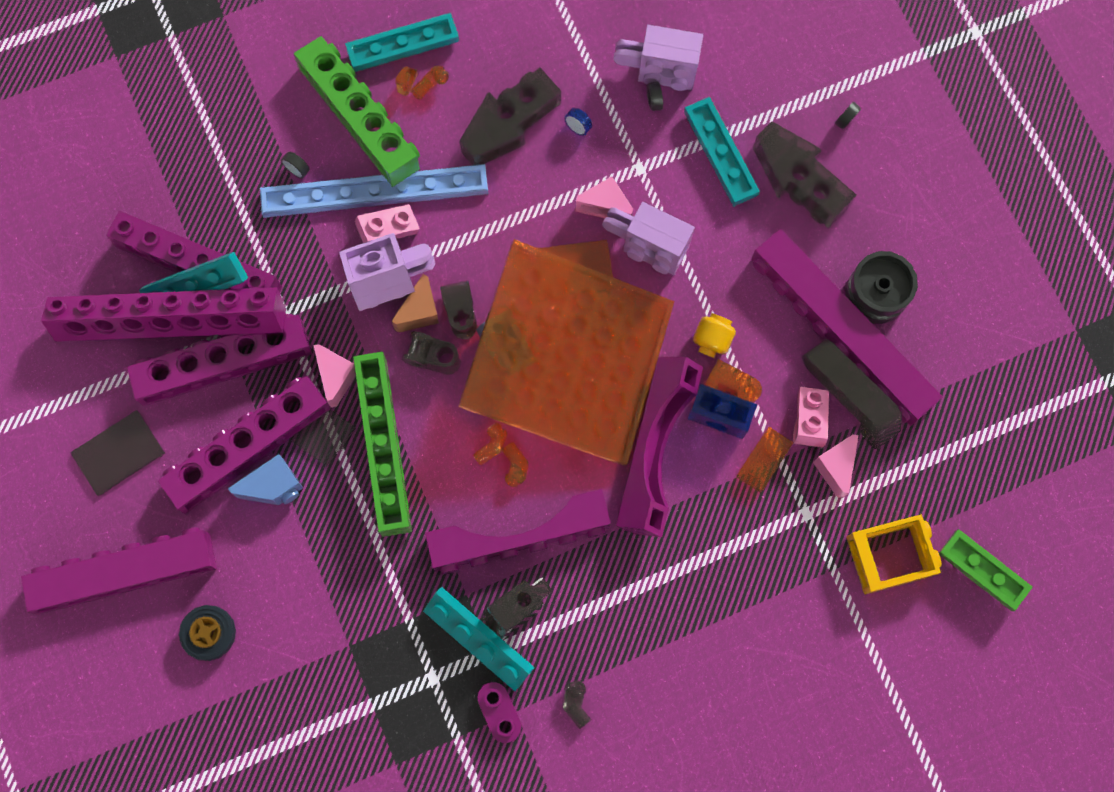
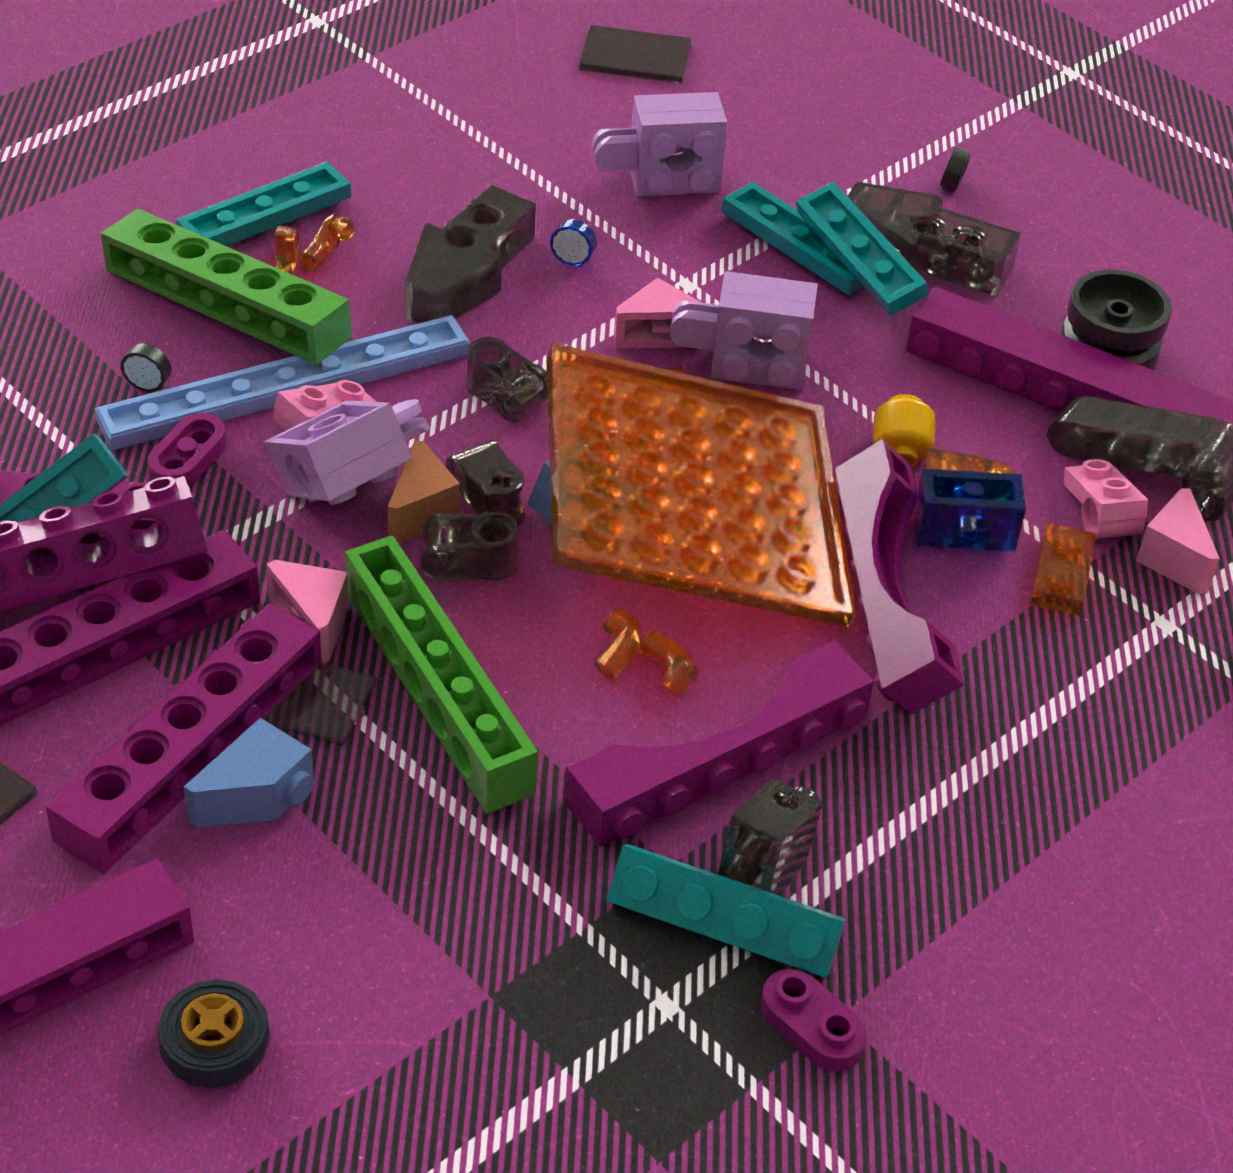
camera: 20 degrees left, 30 degrees down
(298, 235) = (188, 448): none -> magenta plate
(498, 232) = (502, 378): none -> clear smoke piece
(573, 703) = (935, 966): clear smoke arm -> none
(654, 96) = (673, 196): pearl dark grey tile -> none
(748, 183) = (862, 248): none -> teal plate

